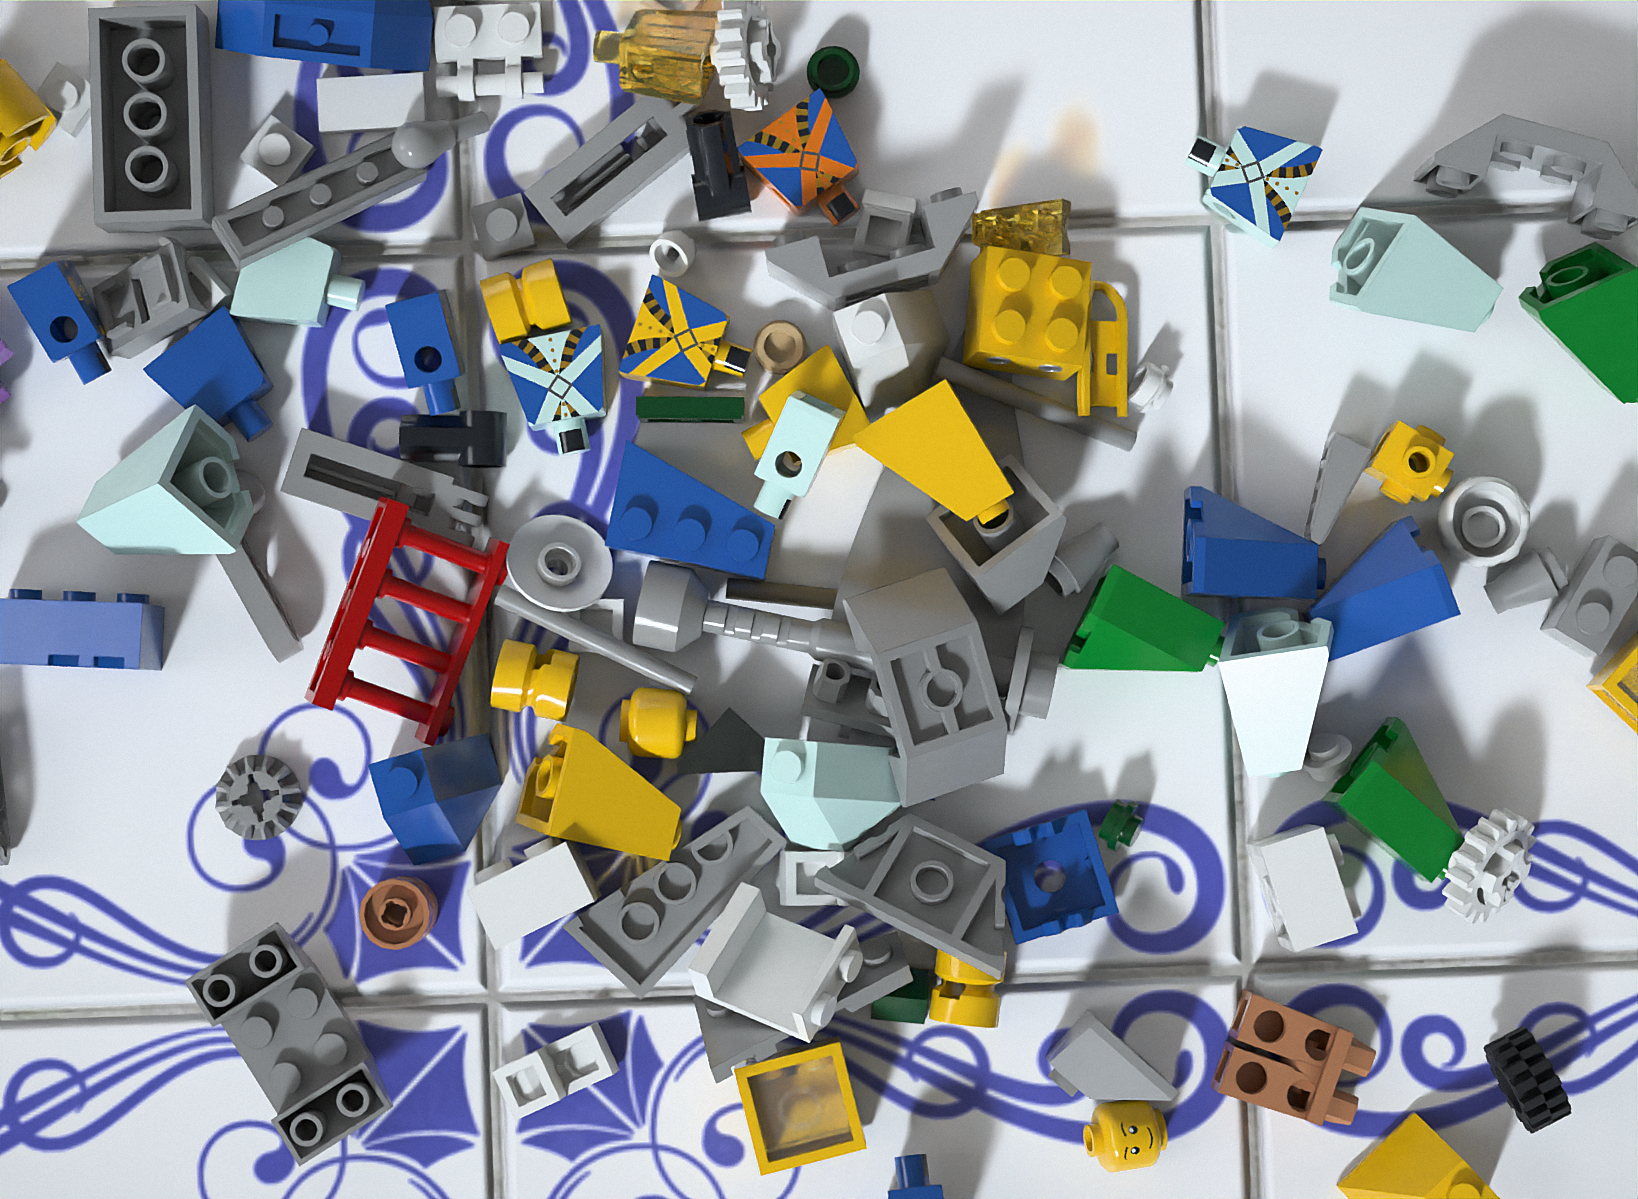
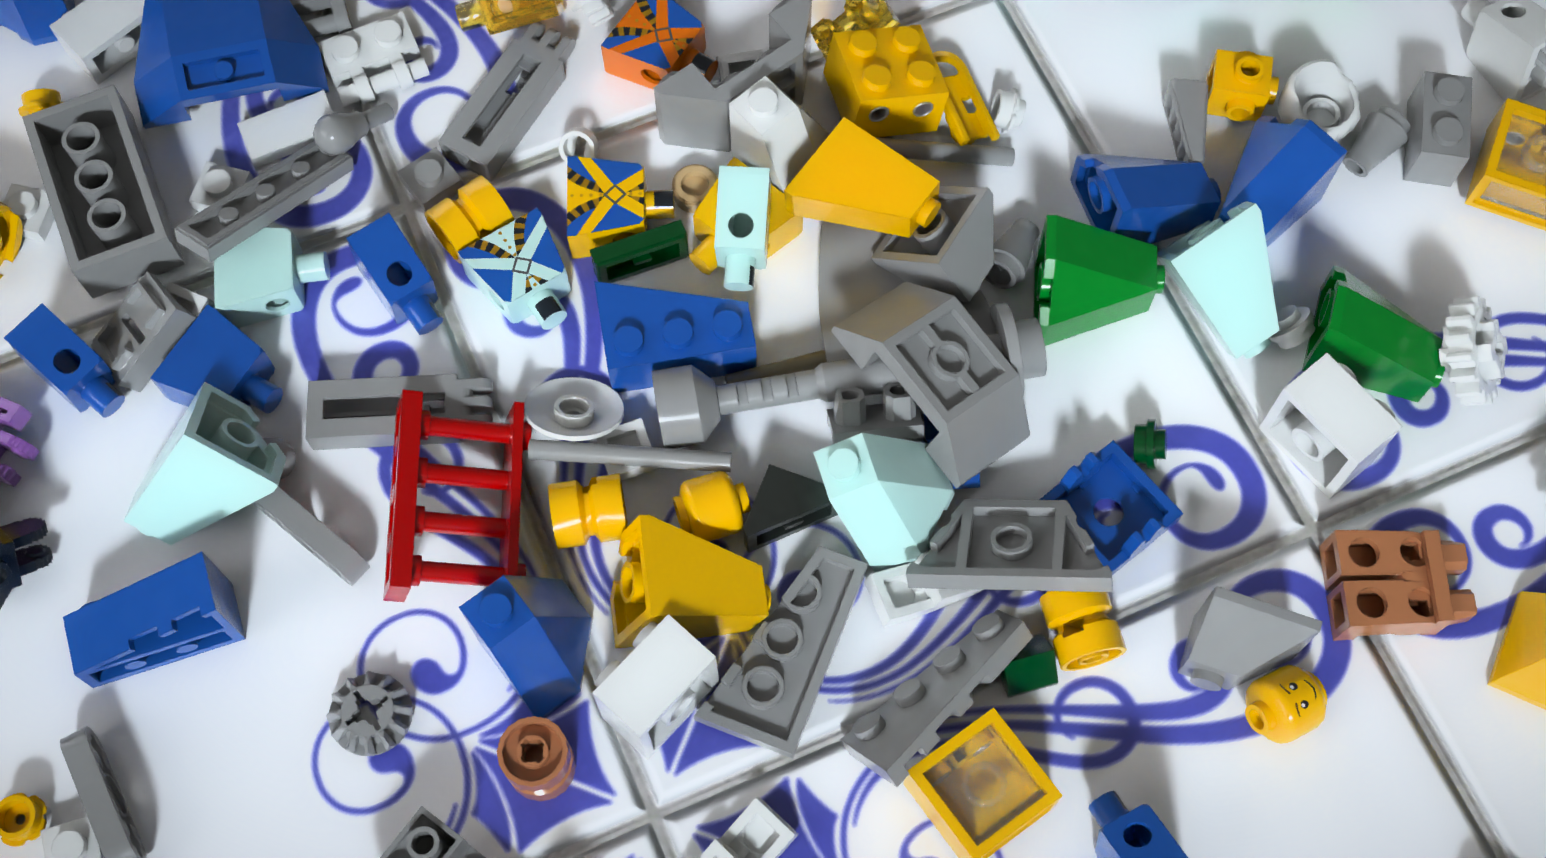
camera: 20 degrees left, 20 degrees down
(469, 439) = (459, 343): black piece -> none
(718, 177) = (596, 81): black piece -> none
(774, 966) = (905, 671): white panel -> none

